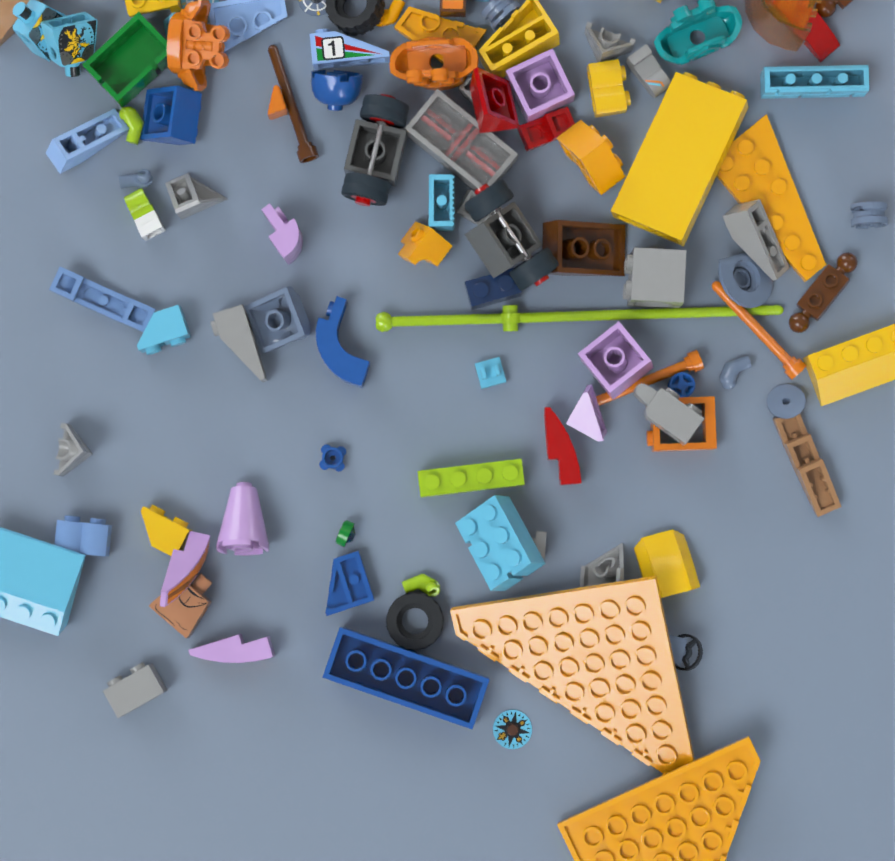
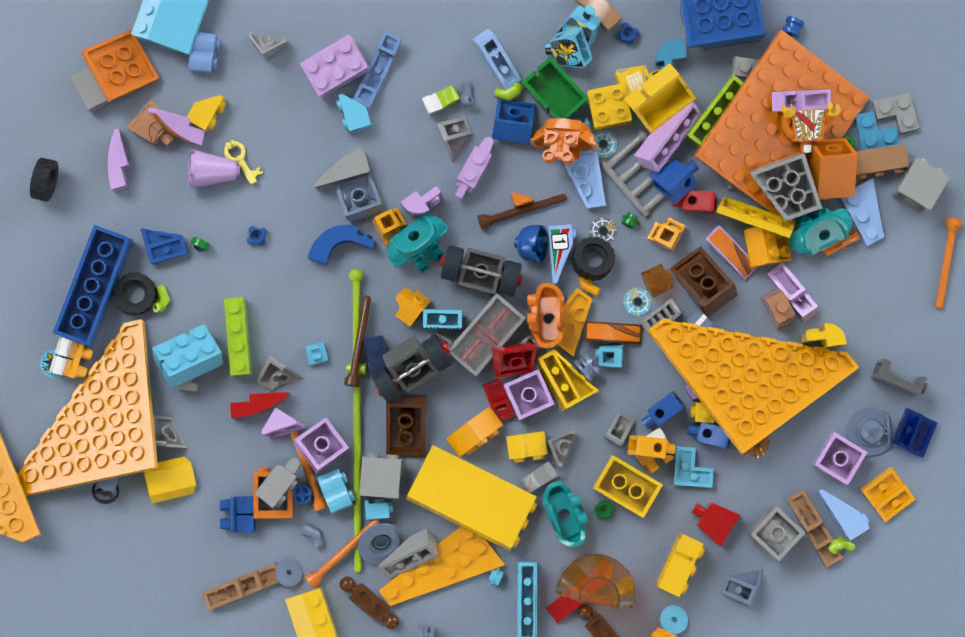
camera: 85 degrees right, 0 degrees up
(99, 355) = (335, 66): none -> lavender brick
(102, 650) = (119, 66): none -> orange plate
(234, 165) = (474, 167): none -> lavender hinge
(250, 469) = (250, 175): none -> light yellow piece
(261, 749) = (44, 179): none -> black tyre
(316, 278) = (388, 224): none -> light orange brick
(348, 255) = (419, 246): none -> teal piece
(517, 706) = (74, 351): none -> hips
(521, 425) = (276, 375): none -> light grey slope
(523, 320) = (352, 378): none -> reddish brown piece
(676, 339) = (335, 491): none -> medium azure brick
(698, 283) = (378, 509): none -> medium azure brick
(710, 465) = (237, 522): none -> blue hips
(783, 125) = (496, 577): none -> medium azure plate

